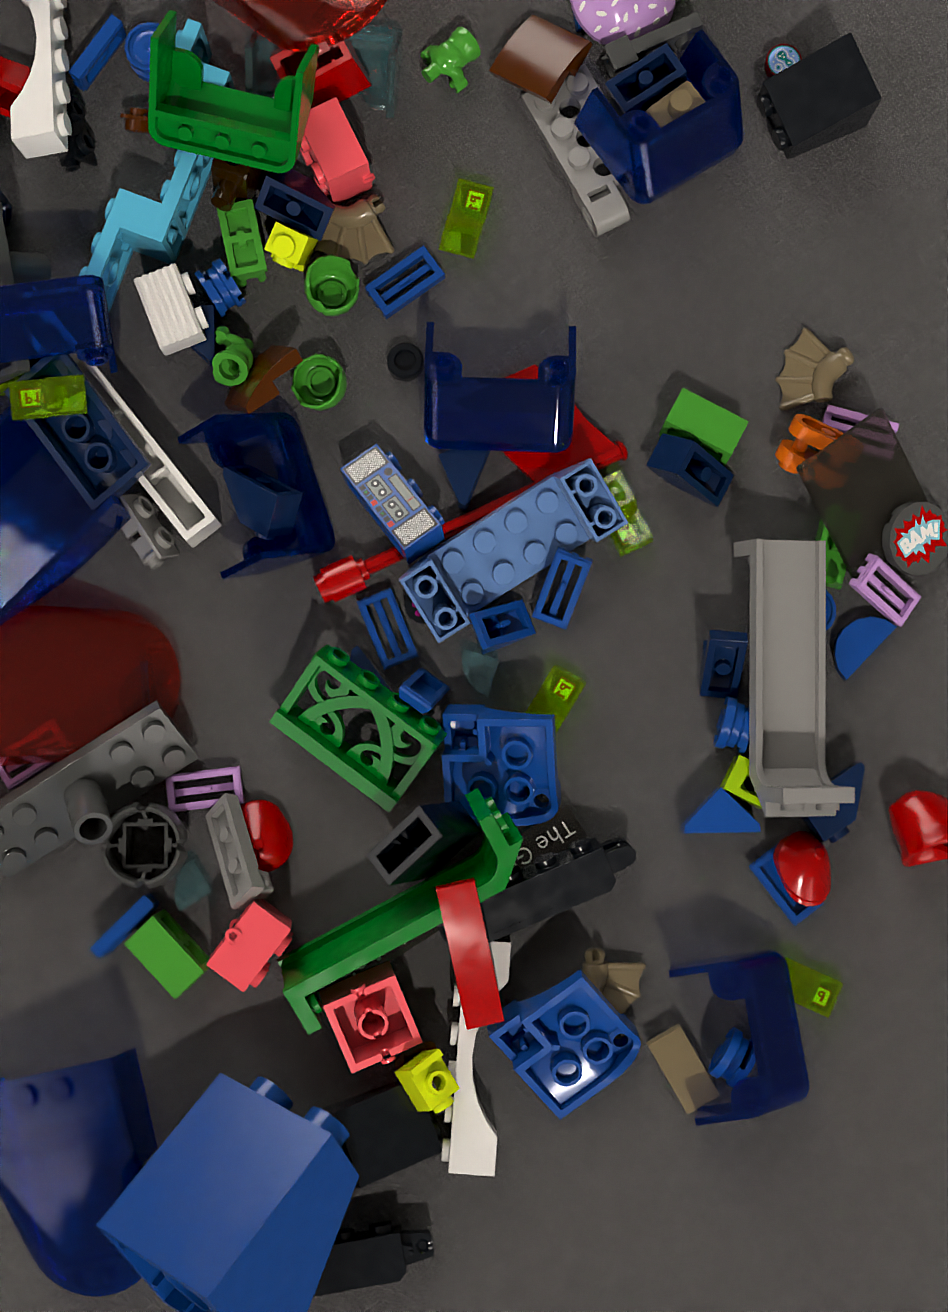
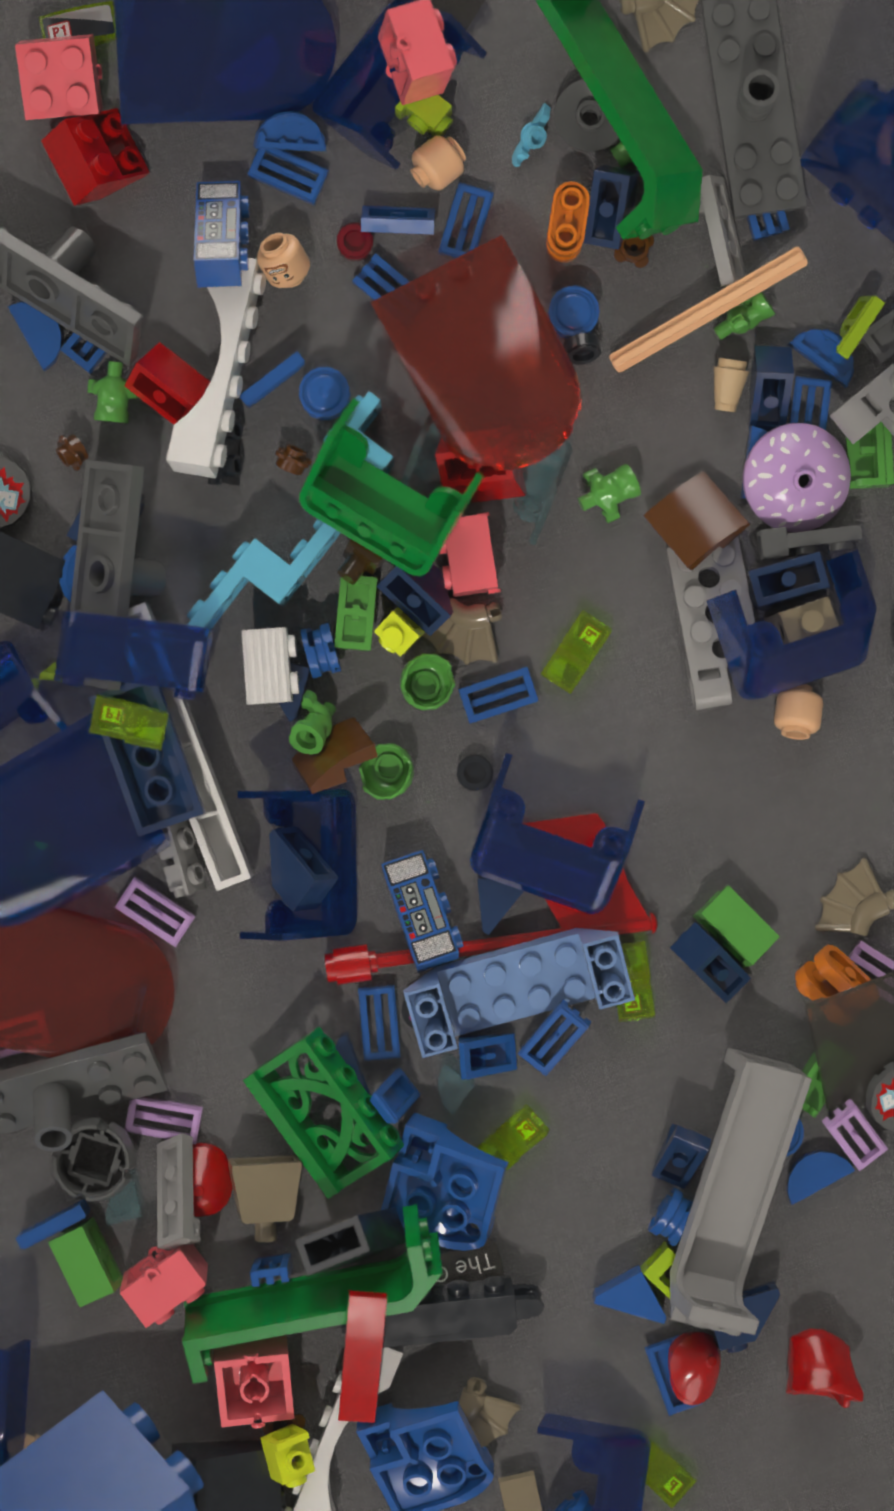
camera: 15 degrees right, 5 degrees up
(167, 598) = (181, 927): none -> lavender tile
(325, 827) = (265, 1191): none -> dark tan torso
(354, 899) = (258, 1272): none -> blue tile
(696, 207) = (798, 712): none -> light nougat head

